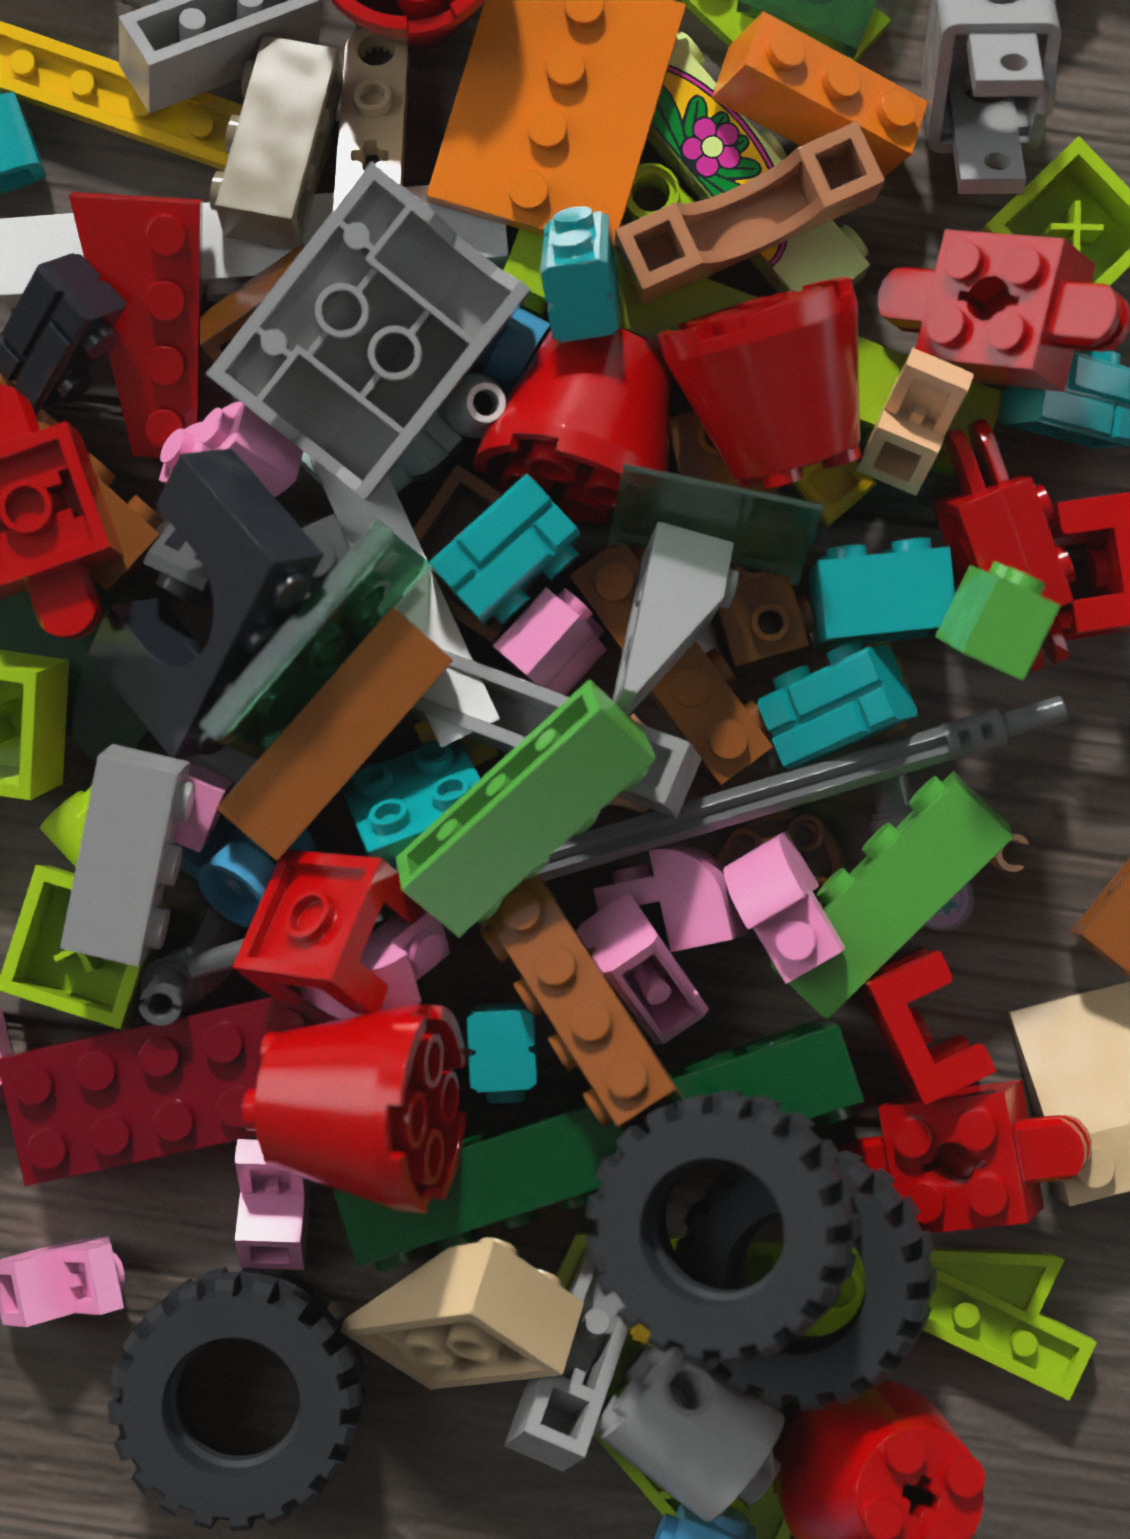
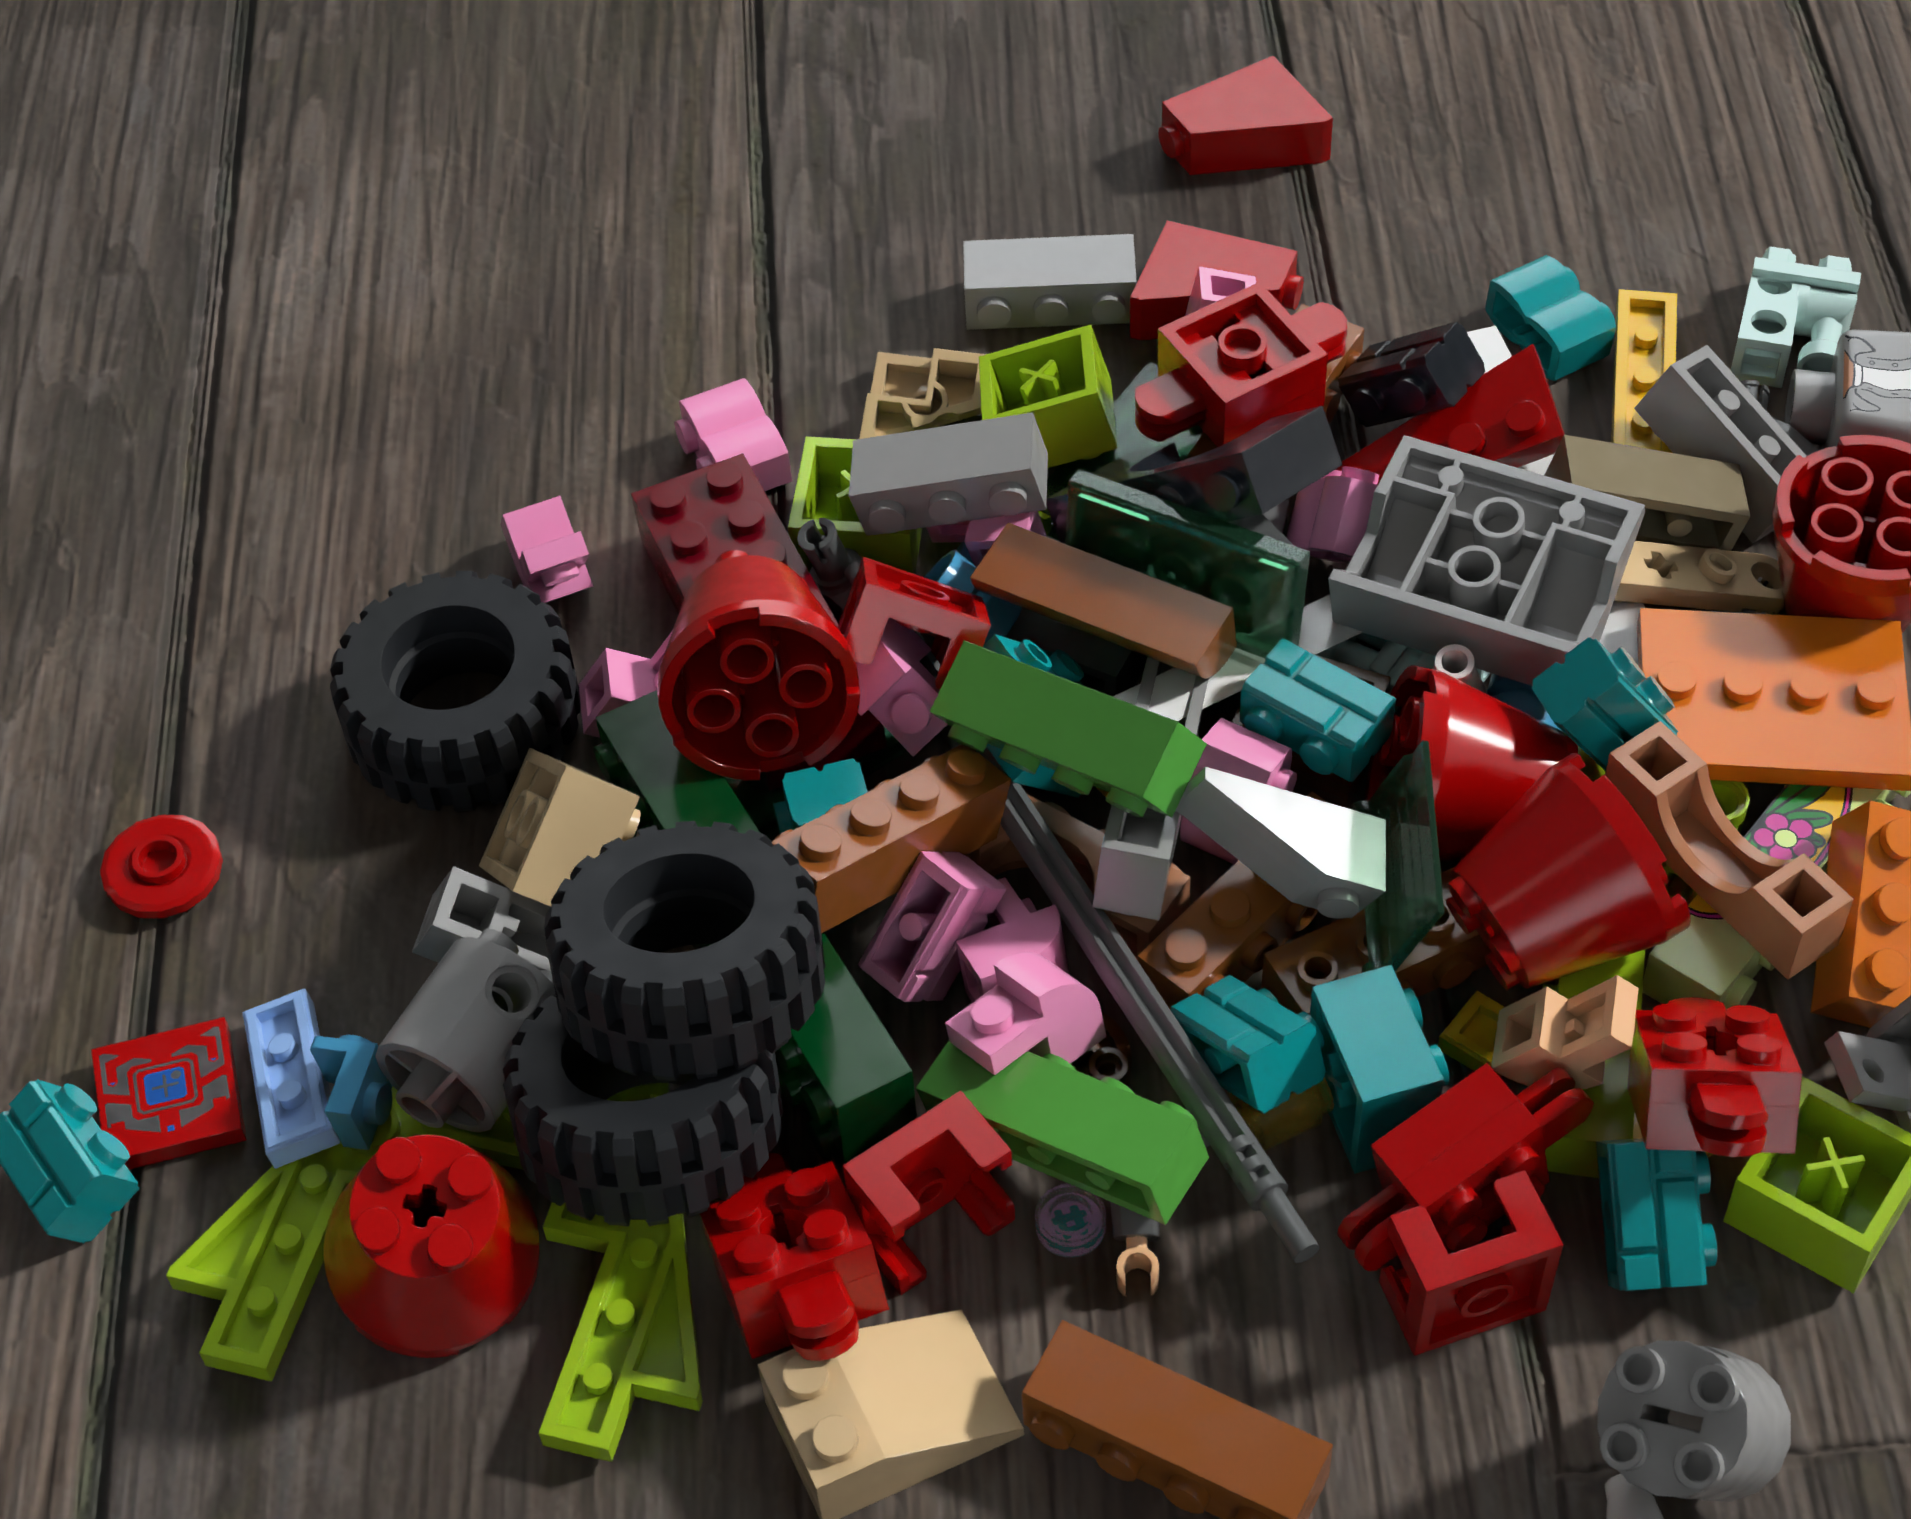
camera: 80 degrees right, 35 degrees down
(999, 618) = (1375, 1089): bright green brick -> none

